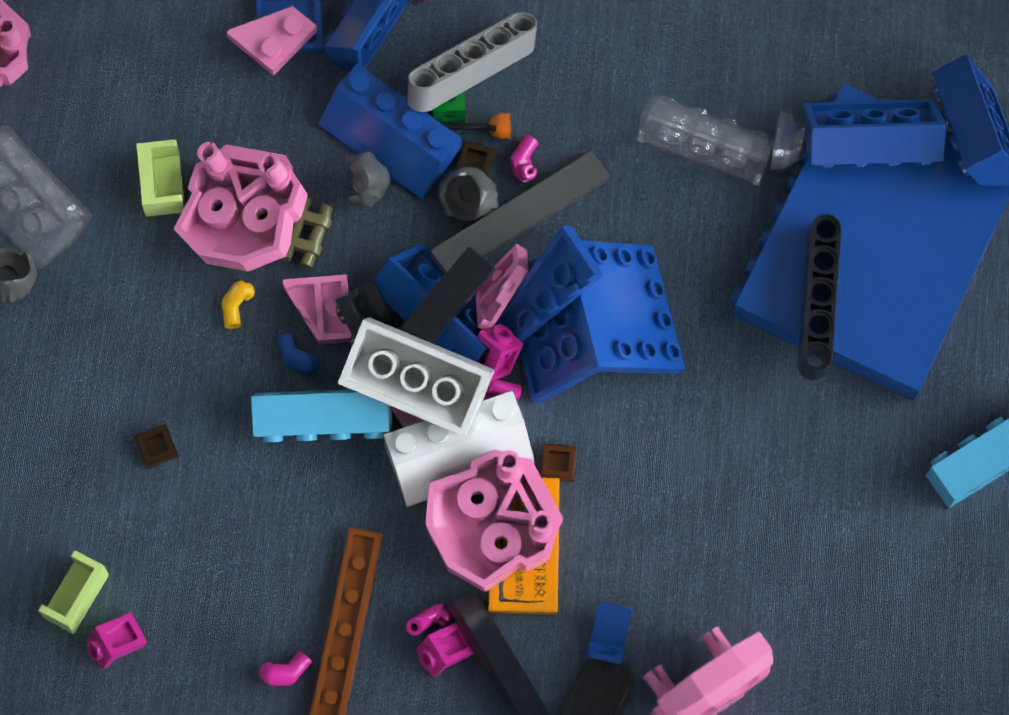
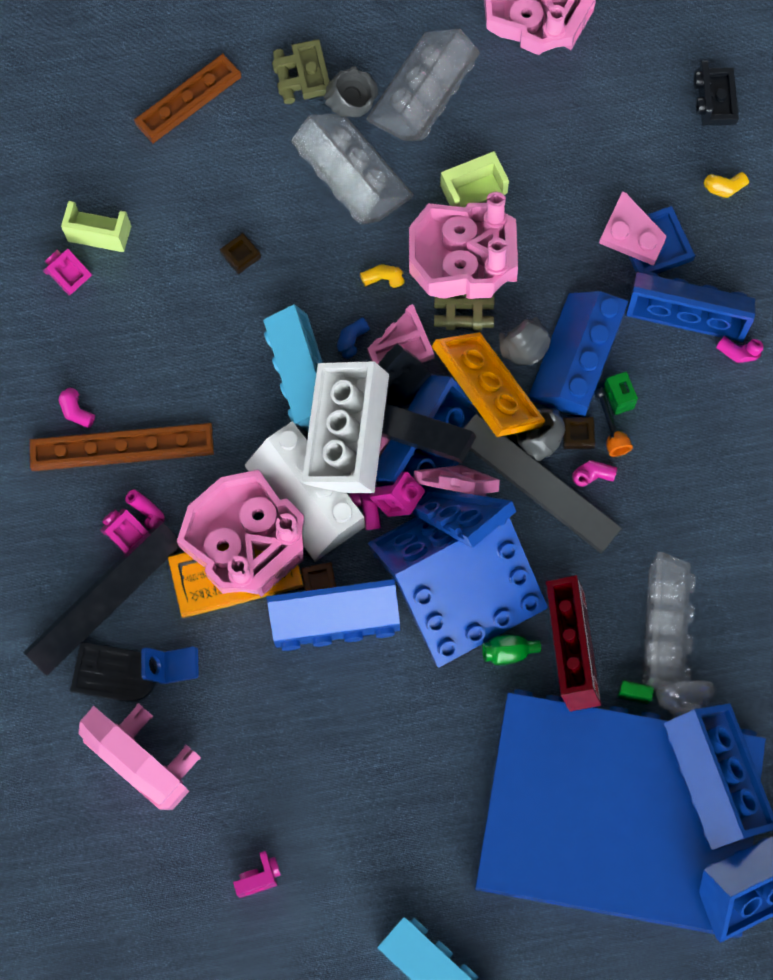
camera: 80 degrees right, 0 degrees up
(97, 300) = (350, 167): none -> clear slope
(401, 227) = (488, 384): none -> light orange tile
(471, 62) = (664, 396): light grey beam -> none
(606, 452) = (334, 614): none -> slope
(685, 296) = (509, 649): none -> green plant
(704, 226) = (573, 643): none -> dark red brick
(763, 189) = (635, 692): none -> green tile
(819, 281) = (548, 755): black beam -> none
(858, 606) = (254, 882): none -> dark pink bracket

